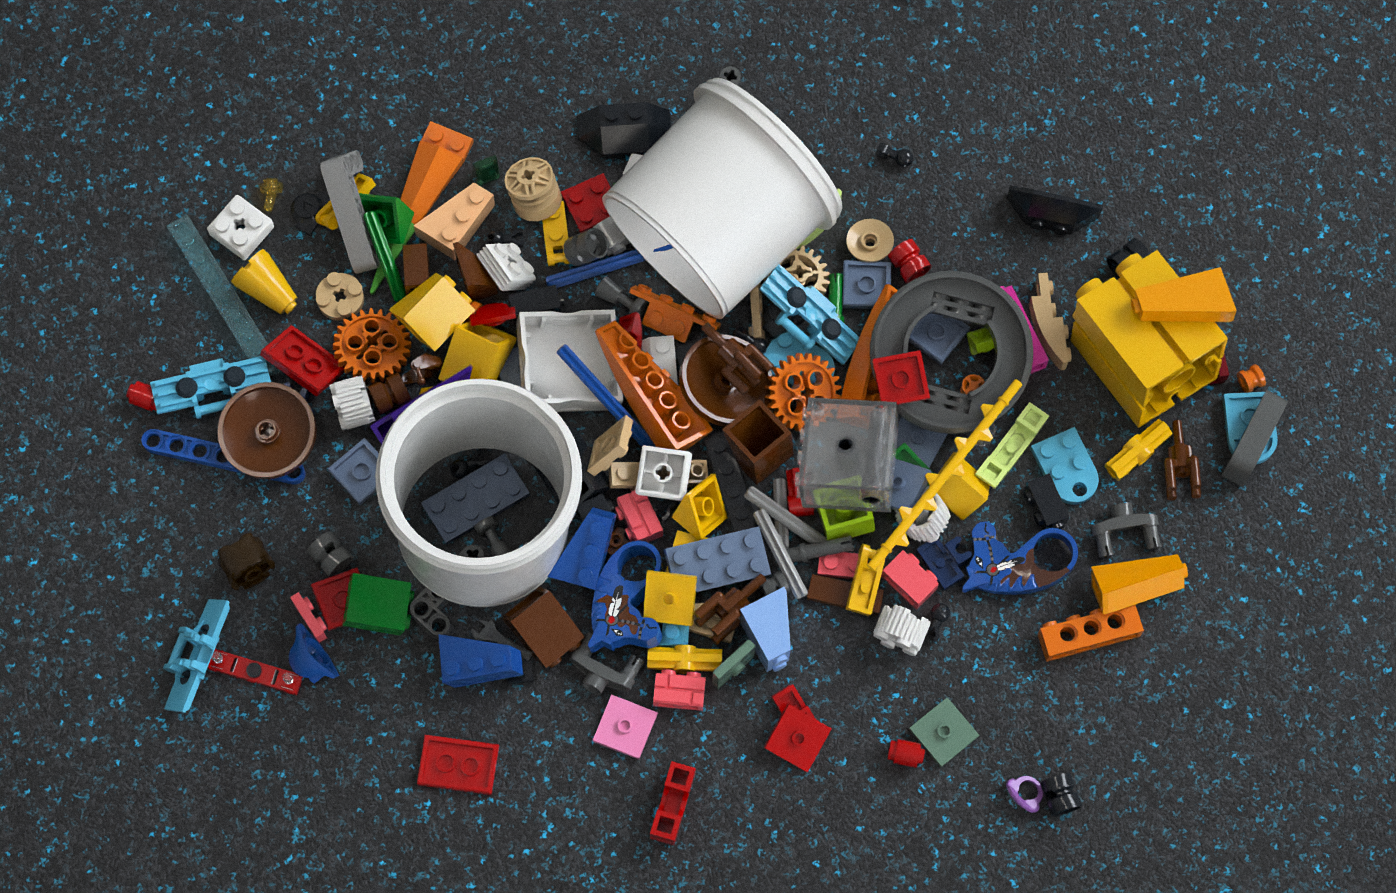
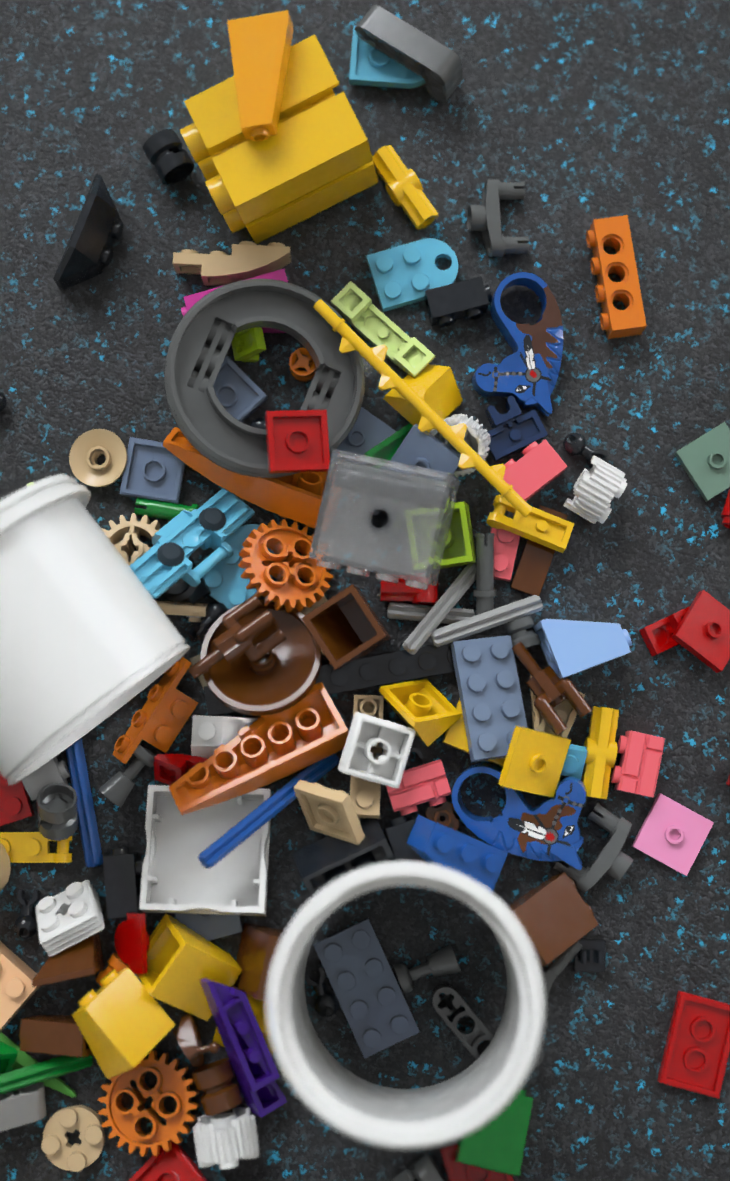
camera: 85 degrees left, 10 degrees up
(357, 471) = (309, 1138): sand blue plate -> none
(476, 661) = (582, 1011): blue wedge -> none
(733, 664) = (619, 695): sand green plate -> none
(908, 259) = (132, 414): red wheel -> none
(1136, 581) = (566, 215): light orange slope -> none
(1181, 464) = (428, 141): reddish brown plant -> none
(1251, 378) = (334, 45): orange wheel -> none

